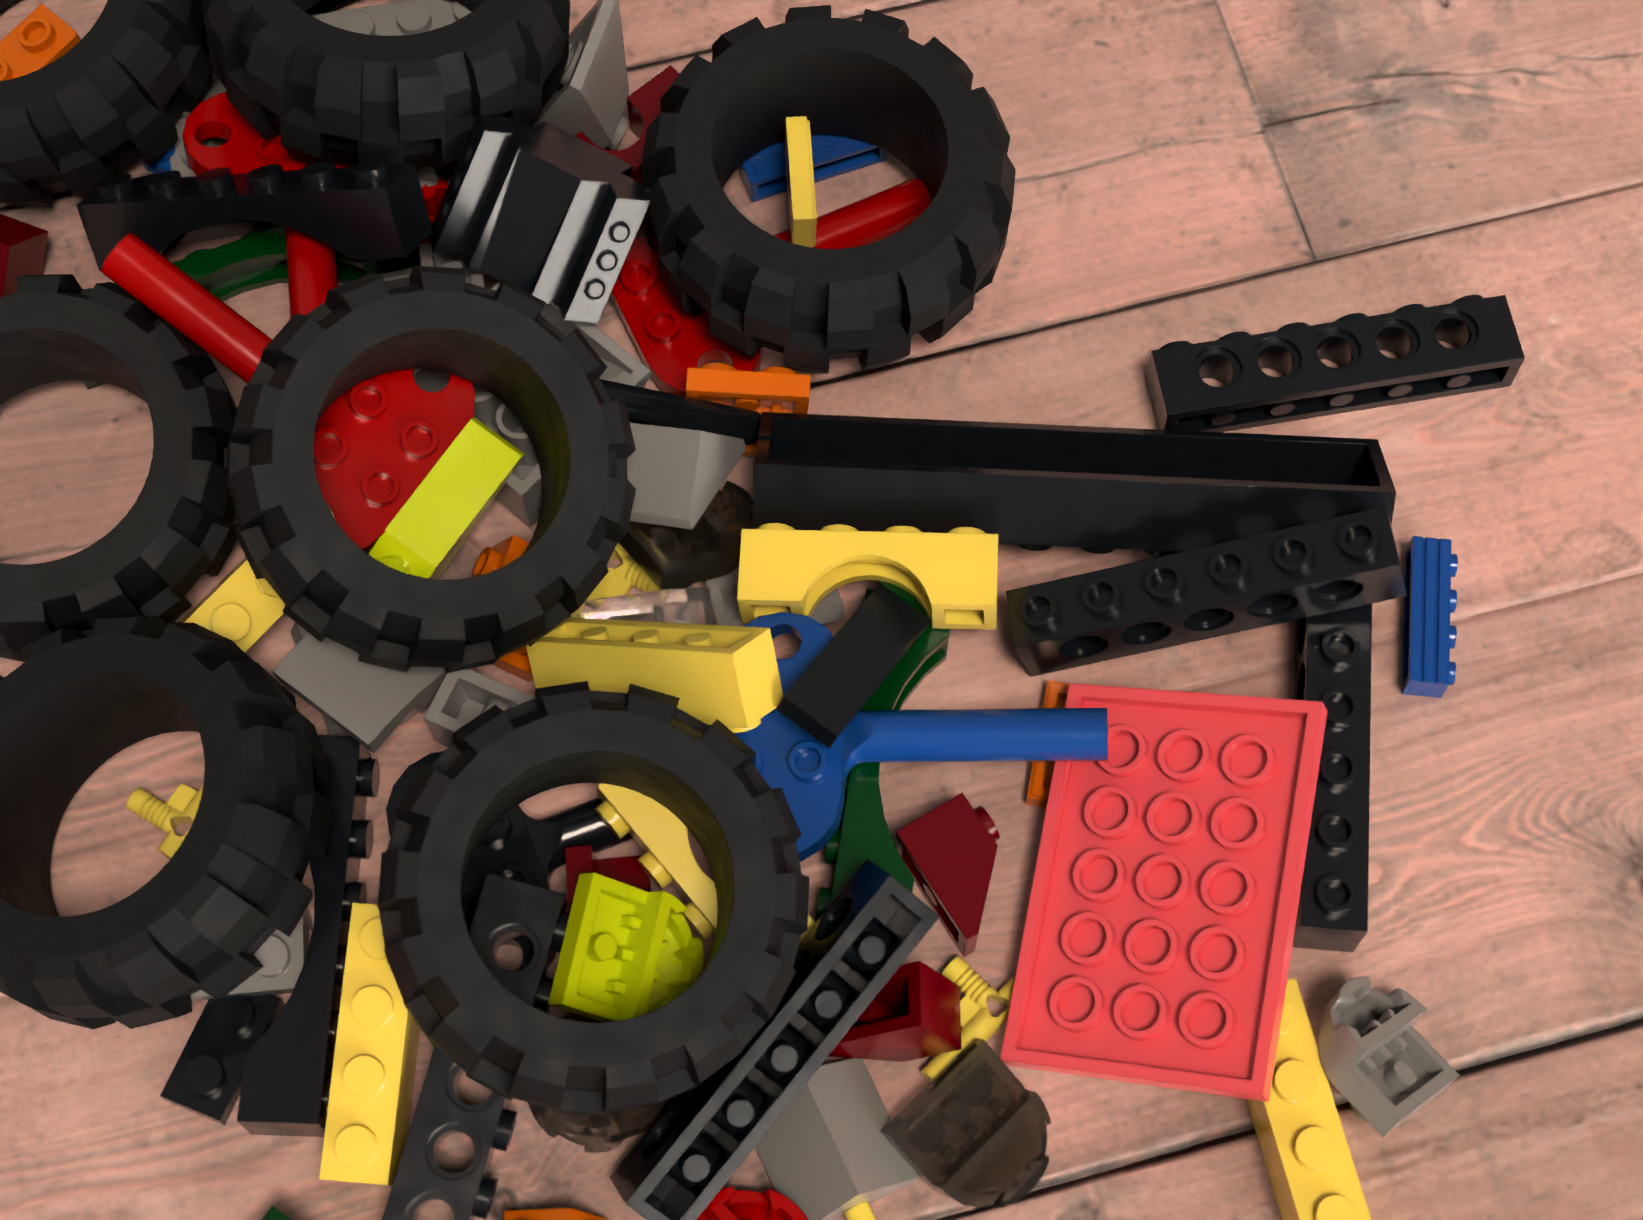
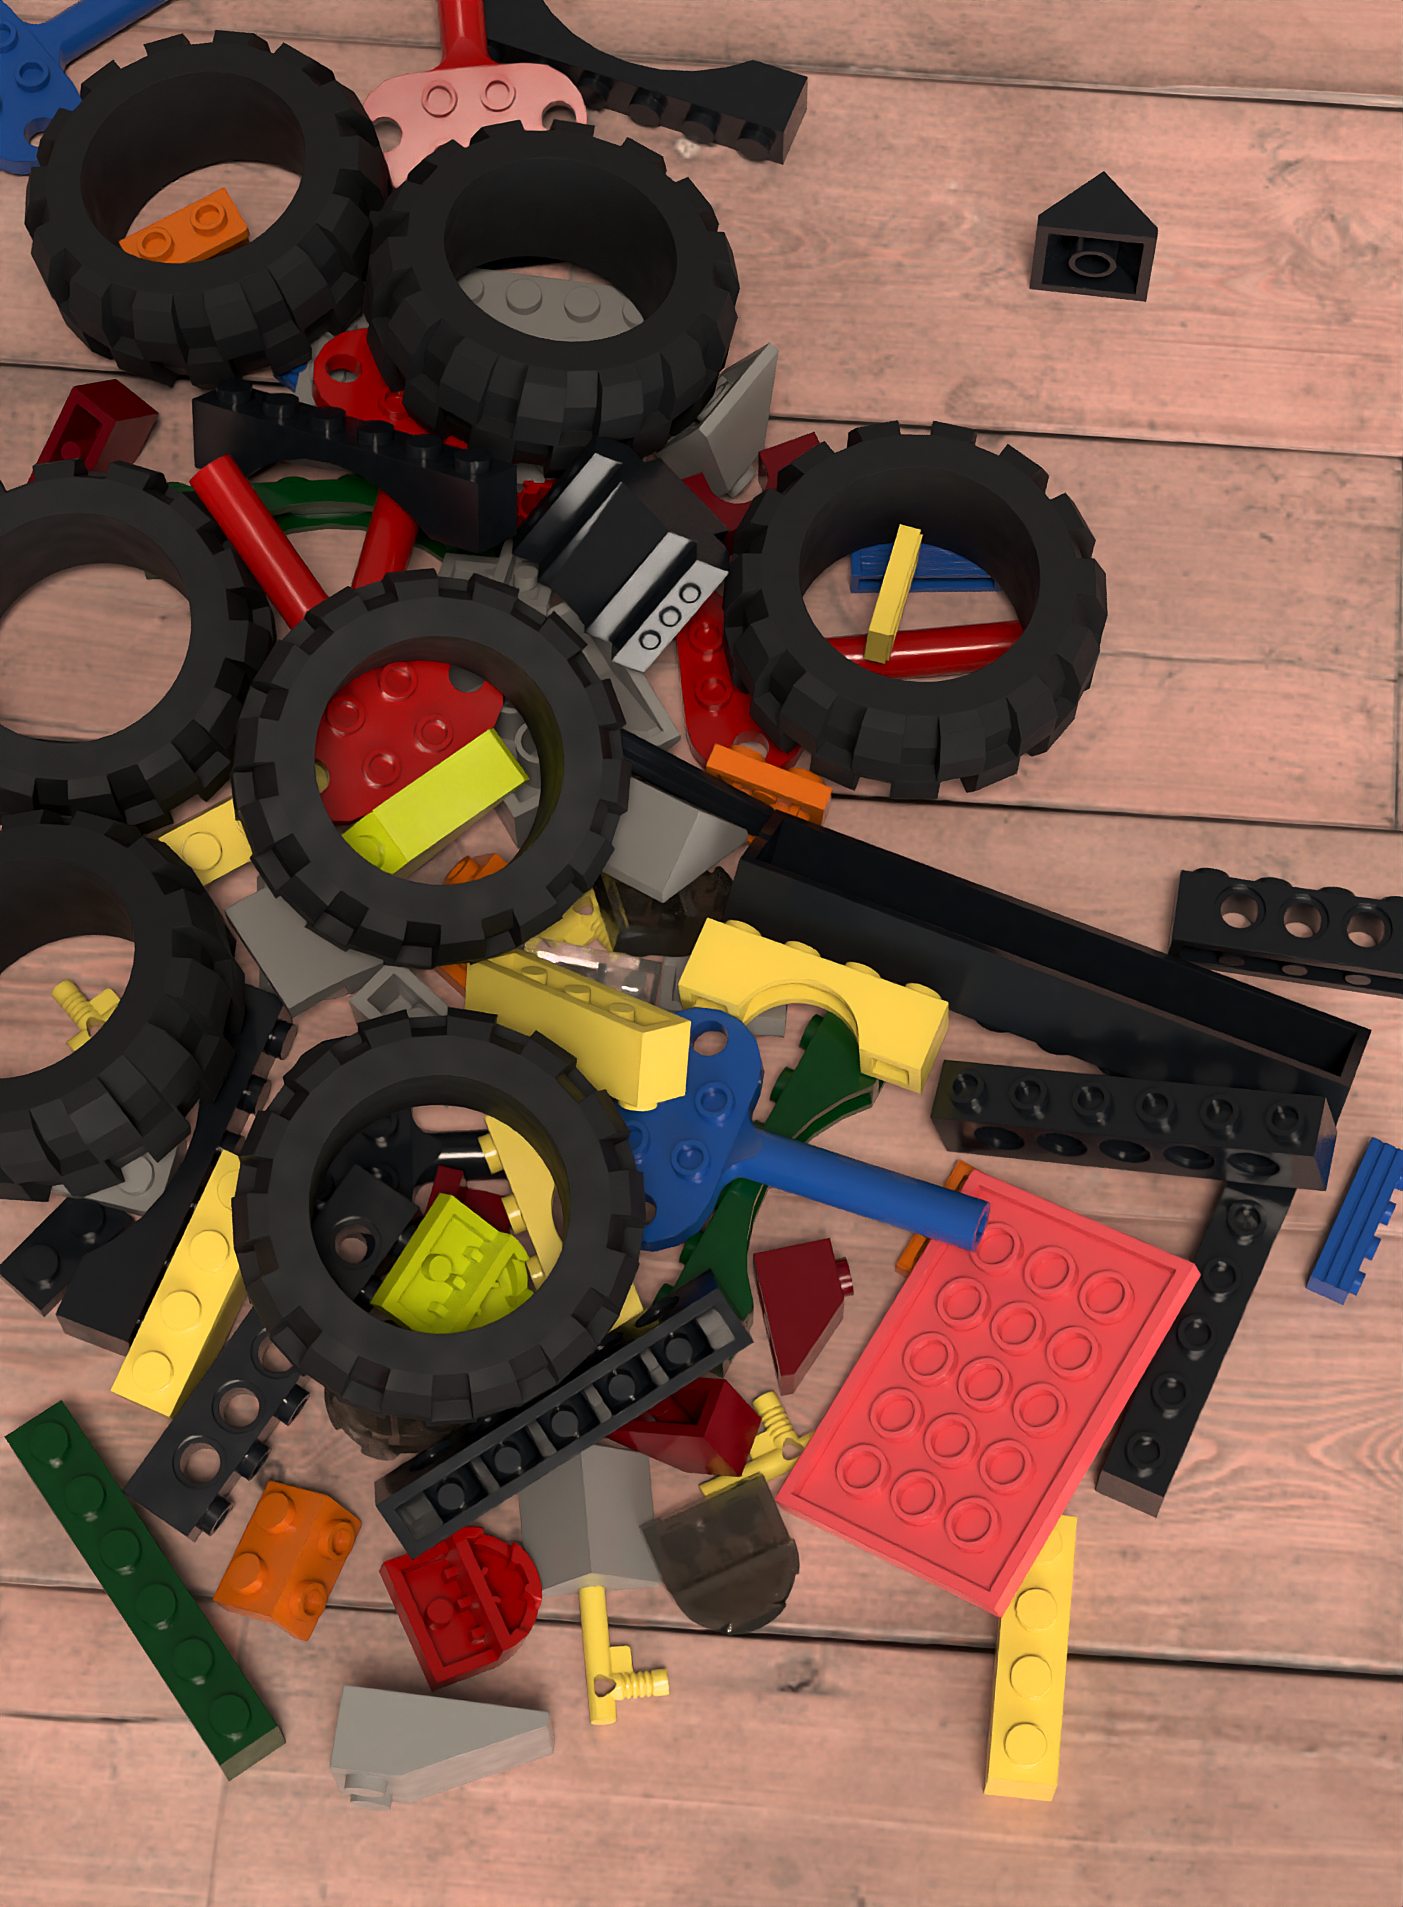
camera: 20 degrees right, 0 degrees up
(853, 665) = (766, 1082): black tile -> none
(1379, 1055) = (1133, 1616): light grey slope -> none

